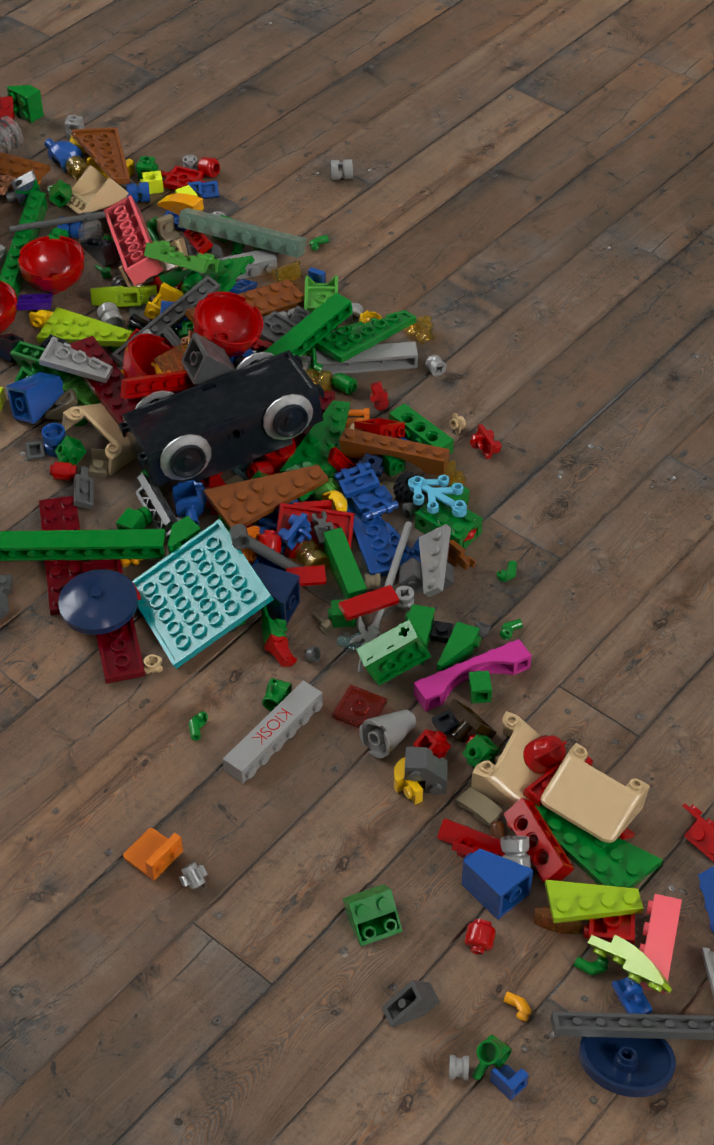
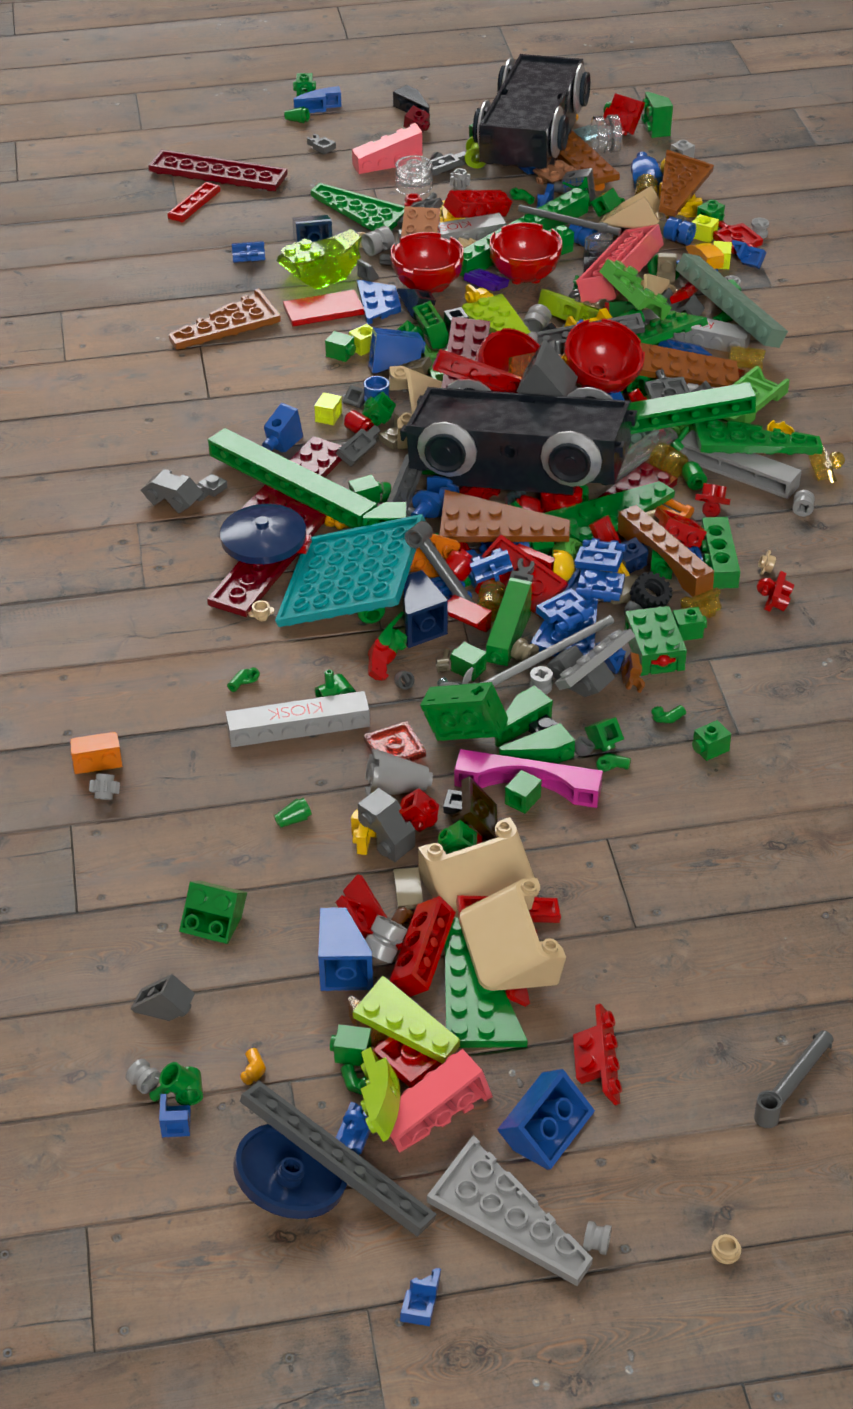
camera: 40 degrees right, 5 degrees down
(8, 212) = (549, 196): none -> blue slope
(14, 513) = (283, 429): none -> blue torso
(27, 471) = (328, 408): none -> neon yellow brick
(66, 359) = (442, 329): light grey wing -> none
(209, 166) = (773, 237): red head -> none
(314, 243) = (814, 345): green arm -> none
(317, 275) = (772, 372): blue plate -> none
(346, 804) = (293, 813): none -> green cone
(357, 310) = (776, 415): light grey wheel -> none
(367, 532) = (561, 606): none -> blue plate
(368, 602) = (494, 661): red tile -> none
(418, 484) = (654, 588): medium azure plant -> none
(480, 936) = (282, 988): red head -> none
(489, 610) = (605, 734): none -> green brick
(544, 753) = (507, 872): red piece -> none
(555, 574) = (711, 740): none -> green brick
(569, 942) = (350, 1043): none -> brick

